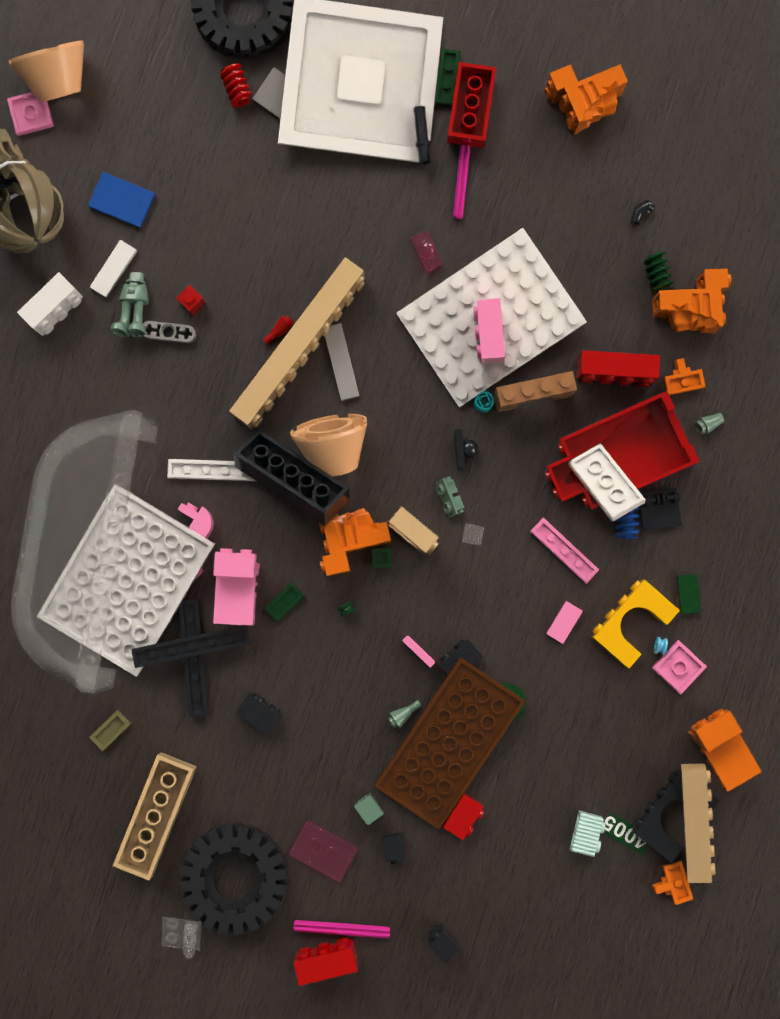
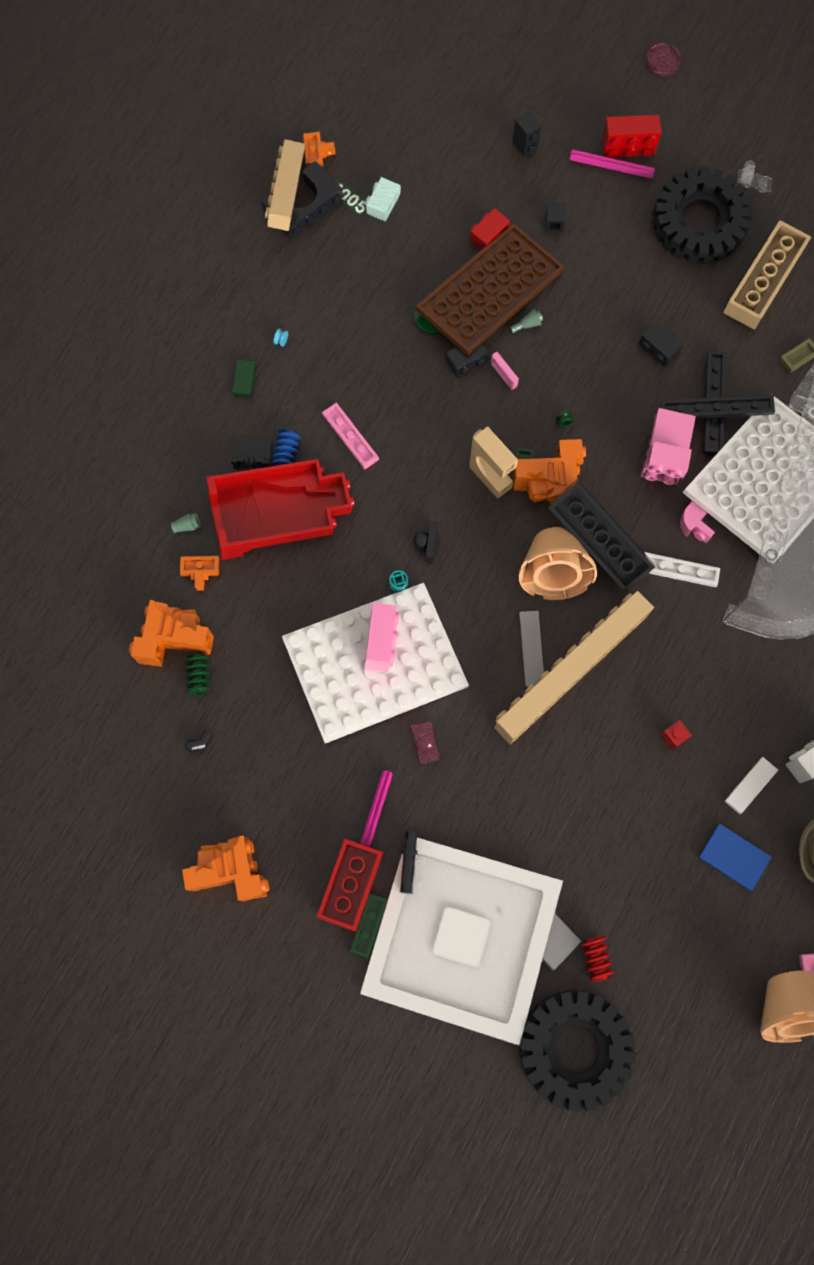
camera: 170 degrees left, 10 degrees down
(133, 294) = (731, 753): sand green piece -> none
(183, 329) = (714, 718): light grey beam -> none
(282, 327) = (584, 693): red cone -> none
(284, 602) = (622, 437): dark green tile -> none
(323, 850) = (618, 226): clear pink tile -> none
(368, 808) = (572, 250): sand green panel -> none
(452, 505) = (448, 494): sand green hinge -> none
(472, 534) = (433, 465): clear tile -> none
(554, 386) = (369, 572): medium nougat arch -> none
(564, 622) = (364, 374): bright pink tile -> none
(606, 482) = (298, 478): white tile -> none
(609, 633) = (288, 380): yellow arch -> none
(618, 367) = (261, 586): red brick -> none
(679, 667) = (268, 318): bright pink tile -> none
(725, 749) = (247, 238): orange brick -> none

